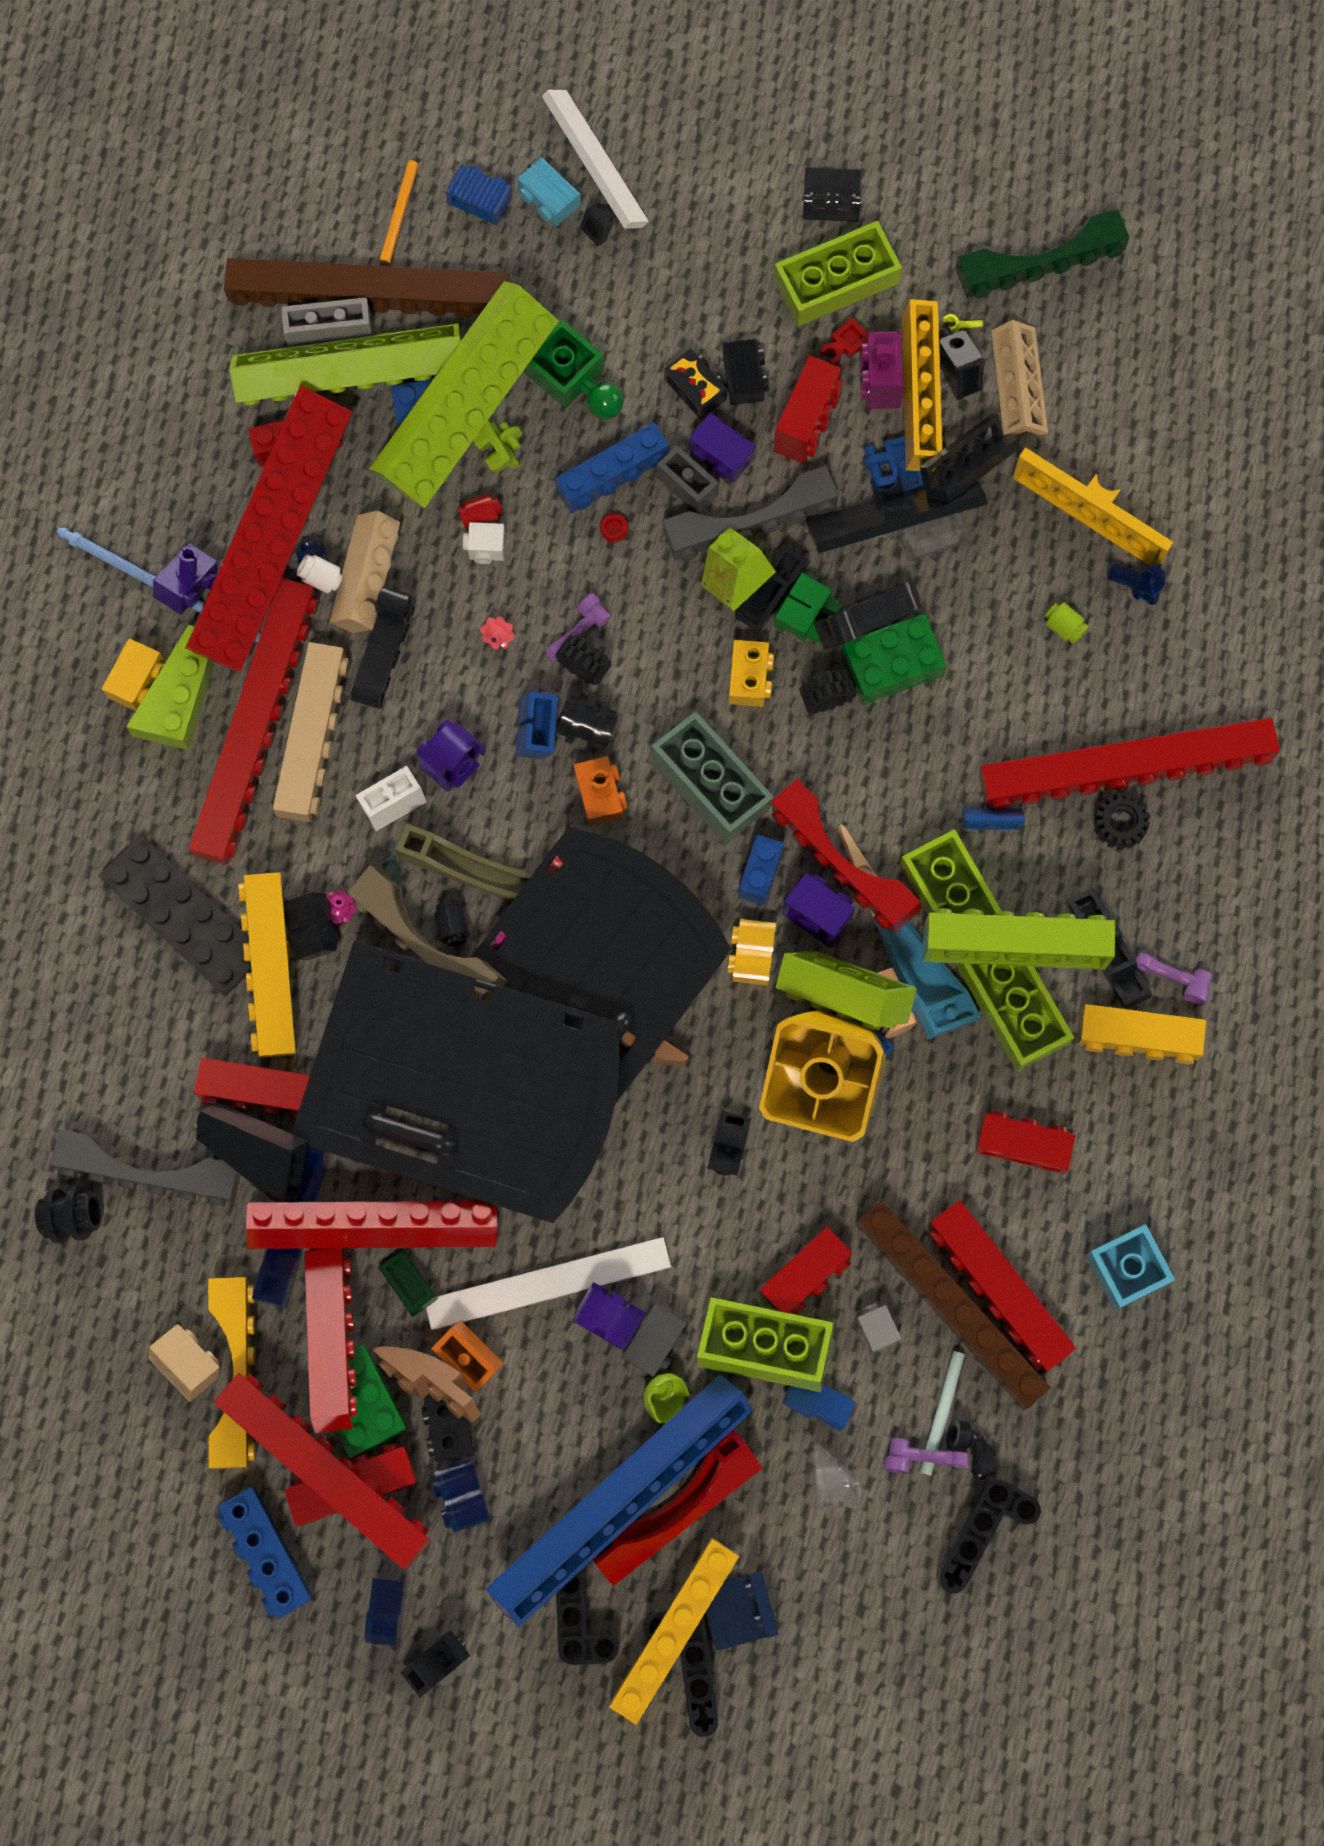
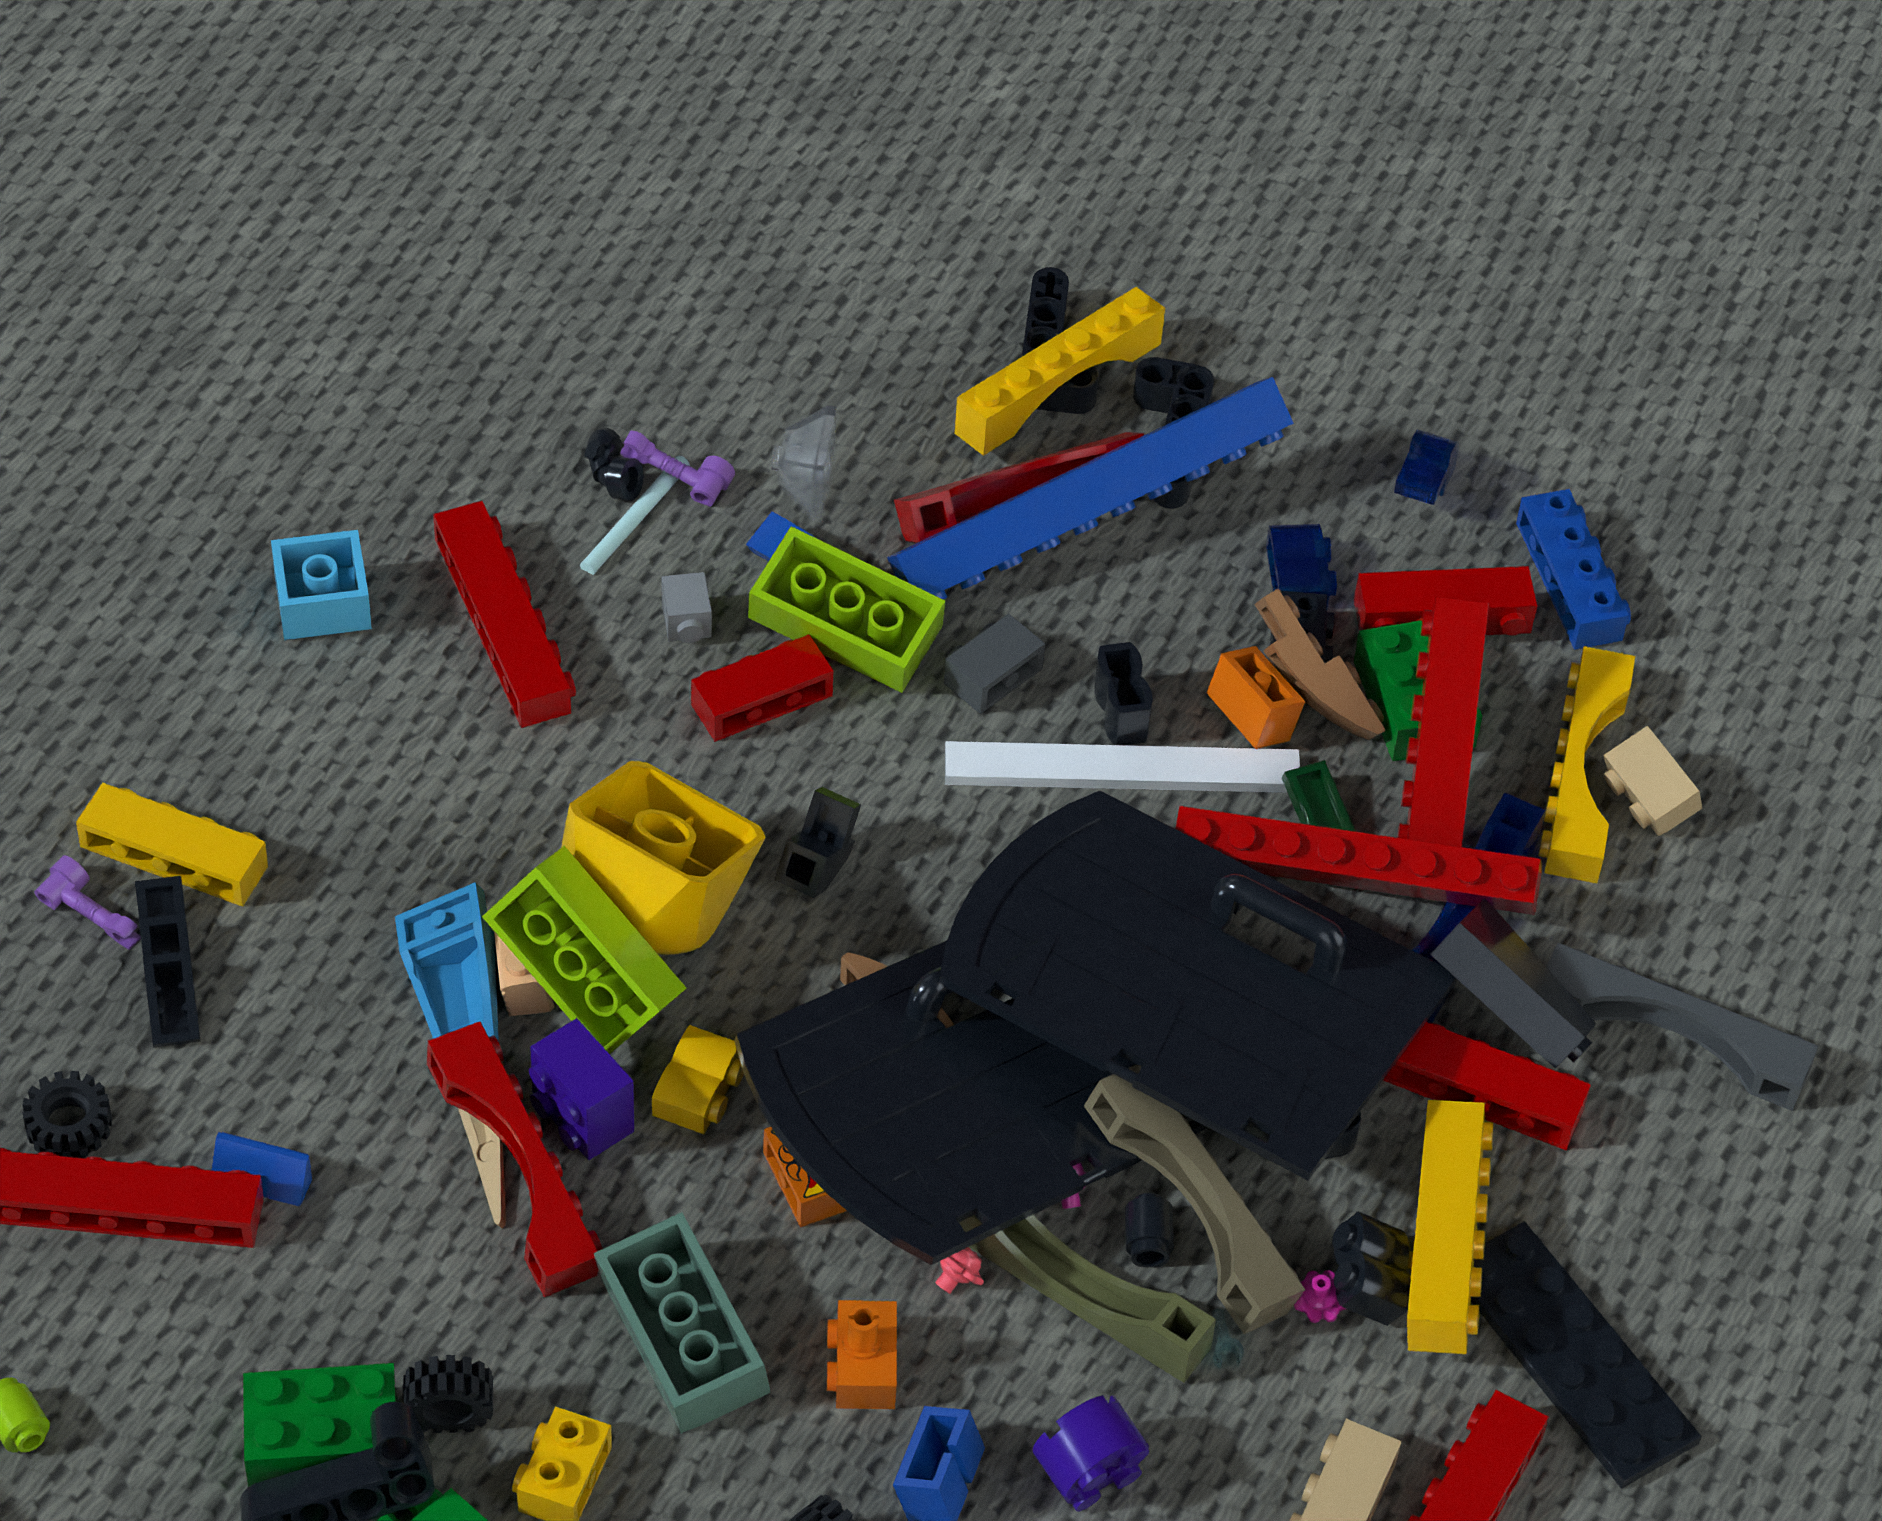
camera: 170 degrees left, 25 degrees down
(68, 1214) = (1789, 985): black piece -> none
(322, 1471) = (1456, 567): red brick -> none
(391, 798) = (1204, 1422): white hinge -> none
(435, 1663) = (1371, 416): black brick -> none
(561, 1338) = (1123, 694): none -> black brick
(586, 722) = (852, 1448): black piece -> none
(608, 1316) = (1051, 689): dark purple brick -> none
(665, 1397) = (999, 595): lime hair -> none
(741, 1612) = (956, 372): dark blue bracket -> none
(761, 870) = (648, 1178): blue brick -> none
(953, 1305) = (579, 609): reddish brown brick -> none
(981, 1539) = (634, 385): black beam -> none
(1009, 996) = (353, 992): lime brick -> none
(1018, 939) = (310, 932): lime brick -> none
(1025, 1142) = (398, 757): red brick -> none

